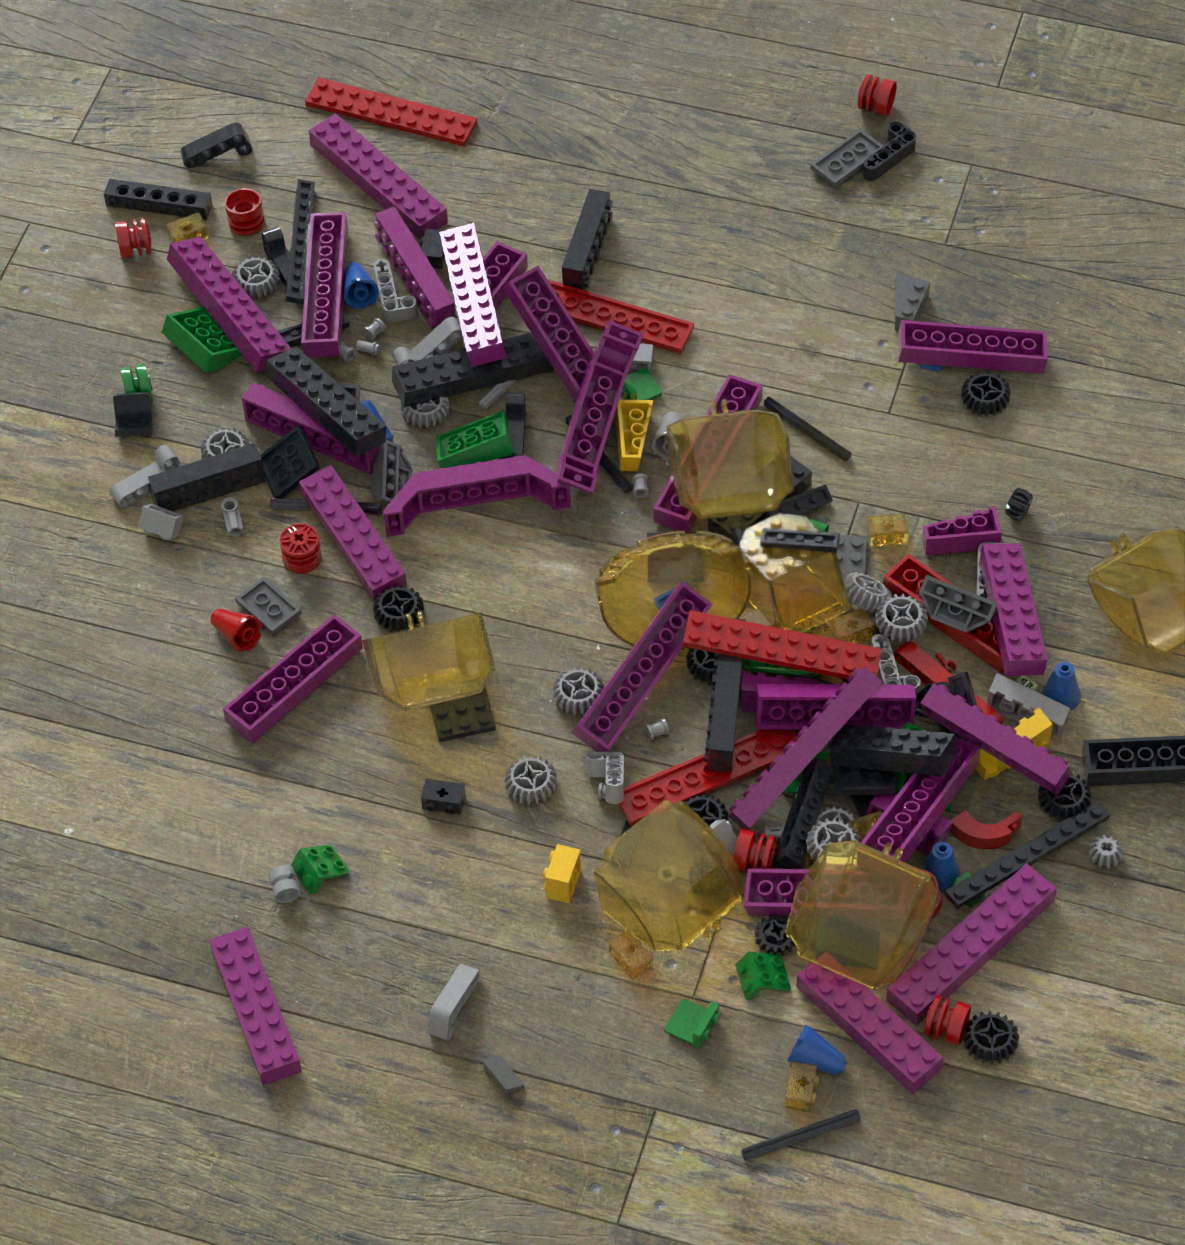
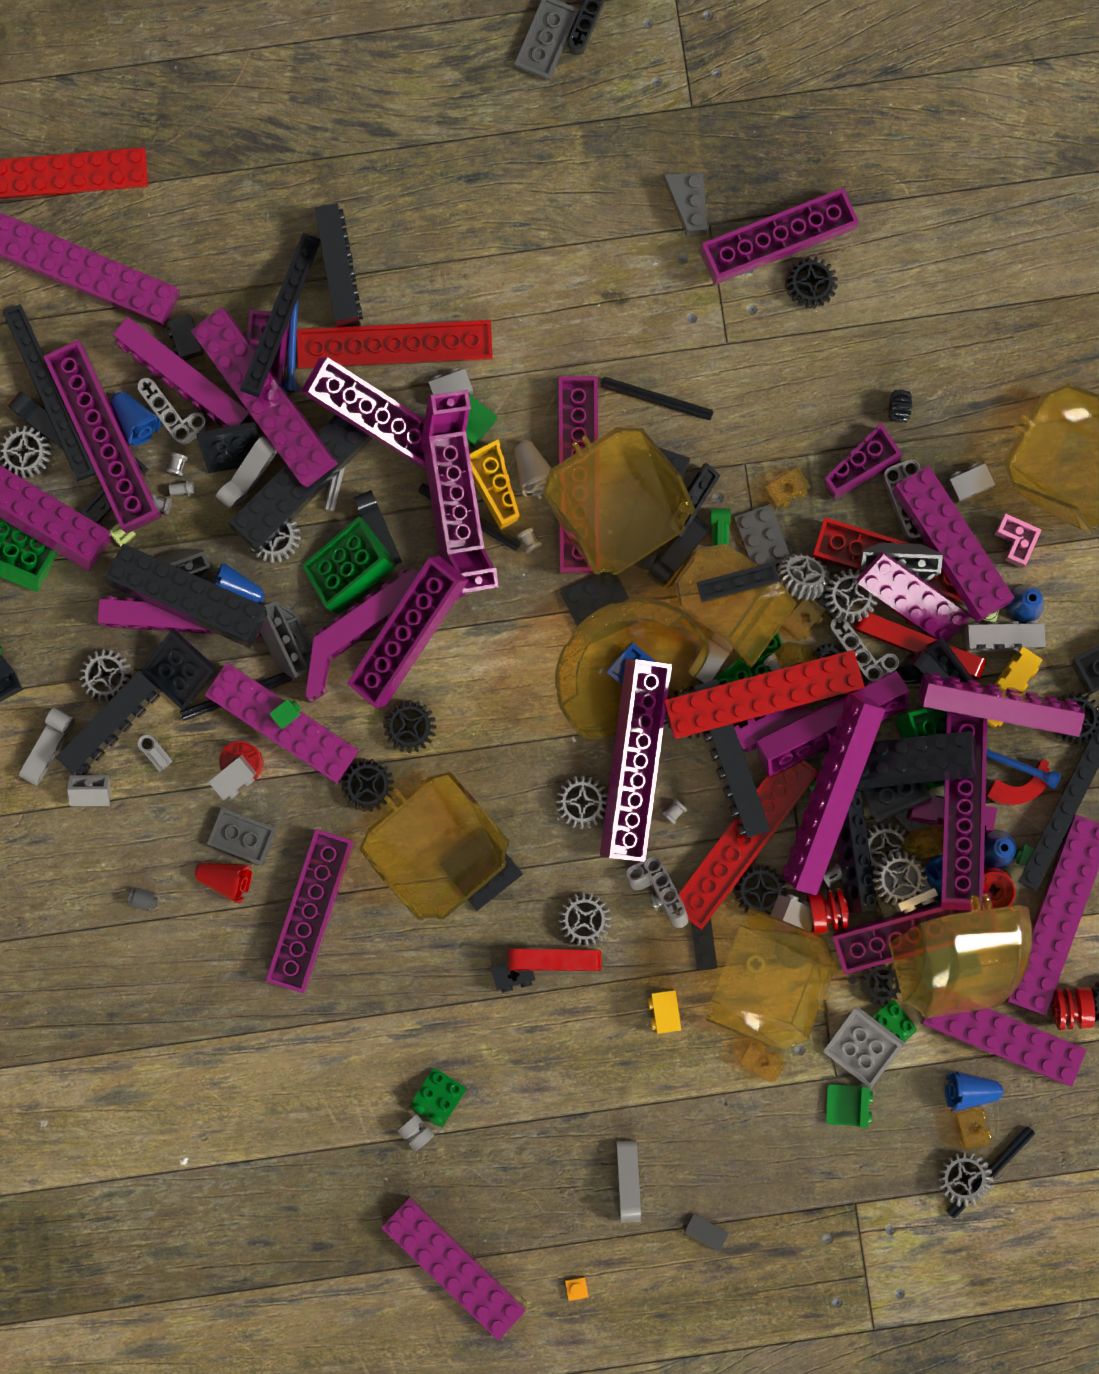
camera: 25 degrees left, 30 degrees up
(156, 618) = (143, 899): none -> dark grey brick
(285, 543) = (232, 778): none -> light grey brick
(357, 1073) = (576, 1288): none -> light orange plate
(358, 514) = (286, 713): none -> green brick
(419, 318) = (227, 446): none -> black plate
(449, 584) = (419, 740): none -> black gear
(485, 794) = (554, 960): none -> red beam
(495, 495) = (407, 631): none -> magenta brick
(501, 307) = (290, 383): none -> blue piece
(516, 247) = (280, 315): none -> black plate
(731, 972) = (863, 1047): none -> light grey plate
(772, 1124) = (960, 1162): none -> light grey gear
(956, 634) = (913, 597): none -> plate
(1015, 823) = (1051, 778): none -> blue piece
(1055, 584) = (971, 482): none -> light grey brick
(1079, 638) = (1021, 535): none -> bright pink brick

